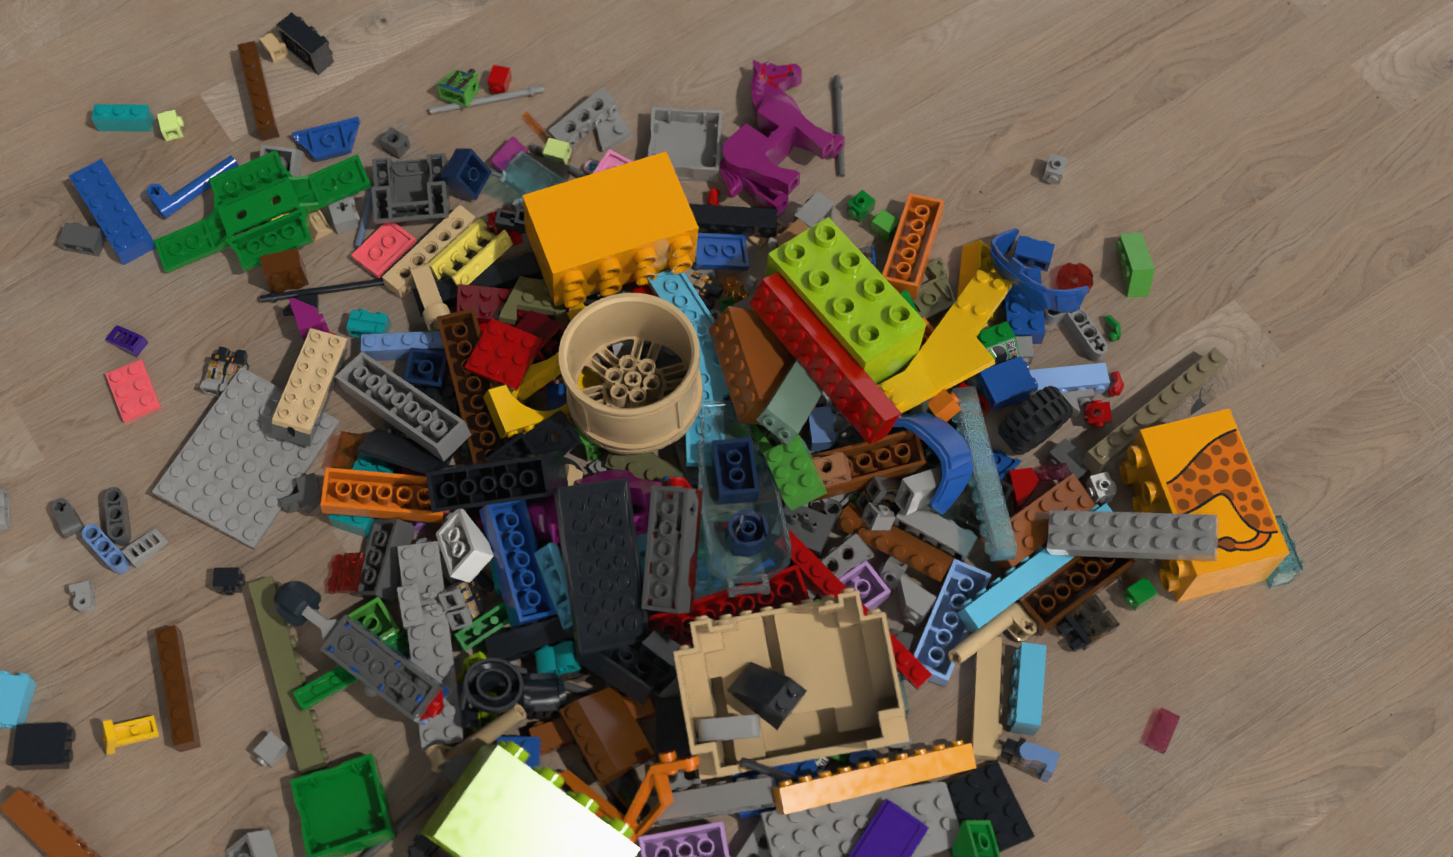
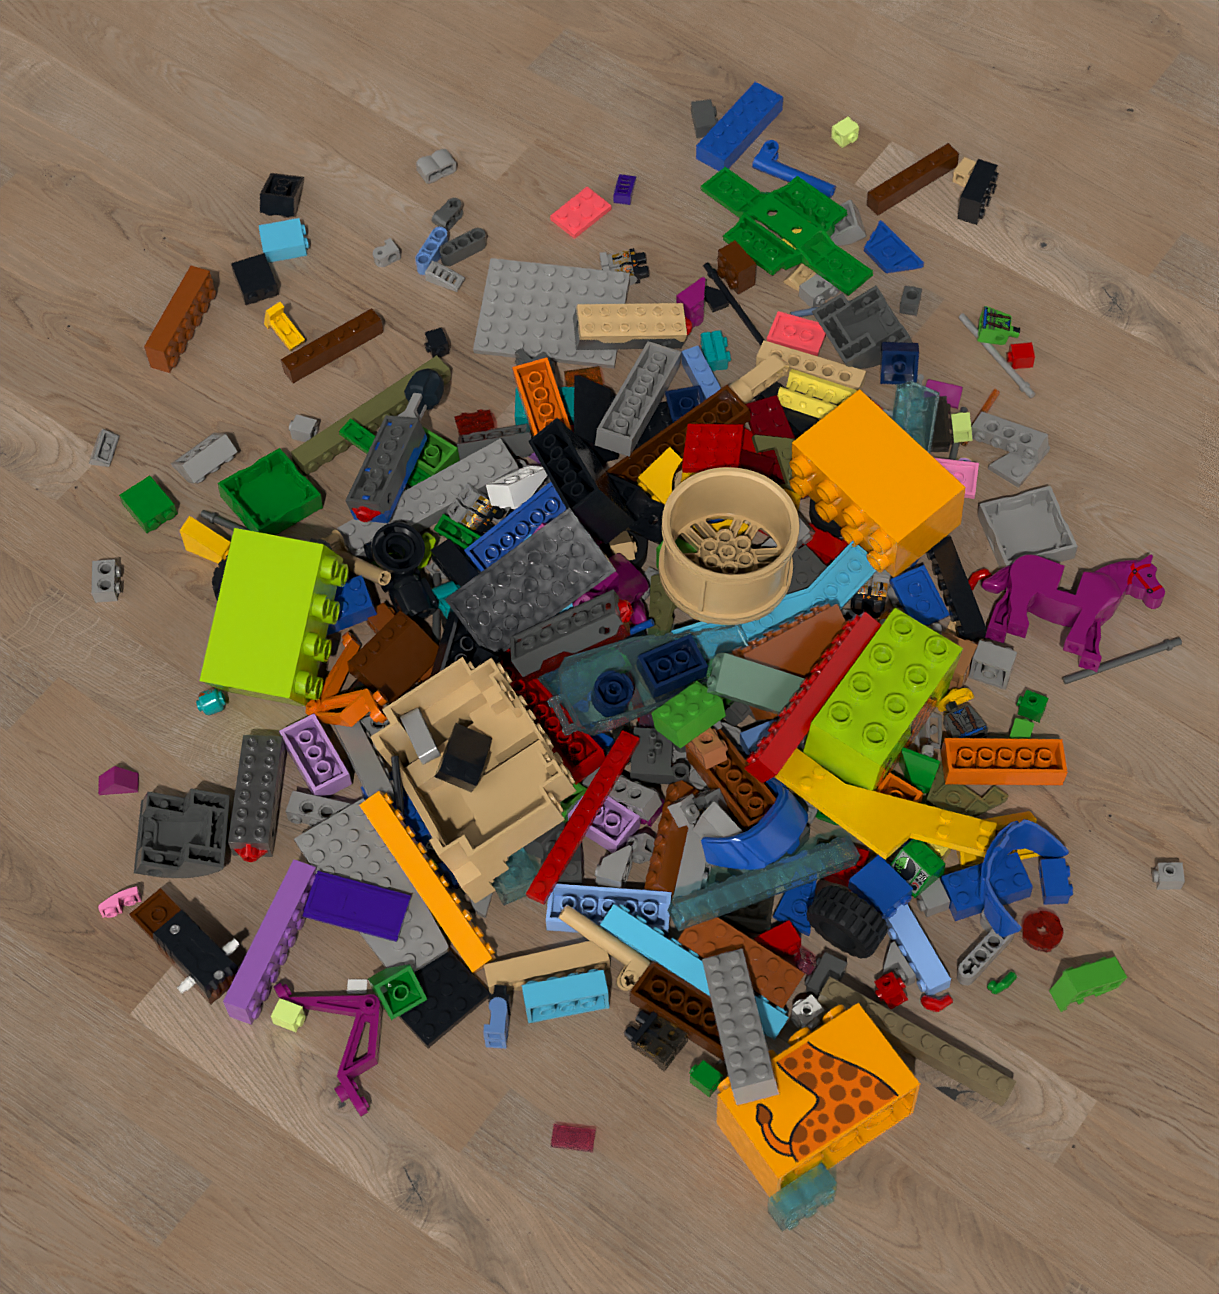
camera: 75 degrees right, 5 degrees down
(122, 117) = (834, 95): teal brick -> none
(411, 607) = (450, 468): light grey hinge -> none
(944, 405) = (822, 830): orange brick -> none

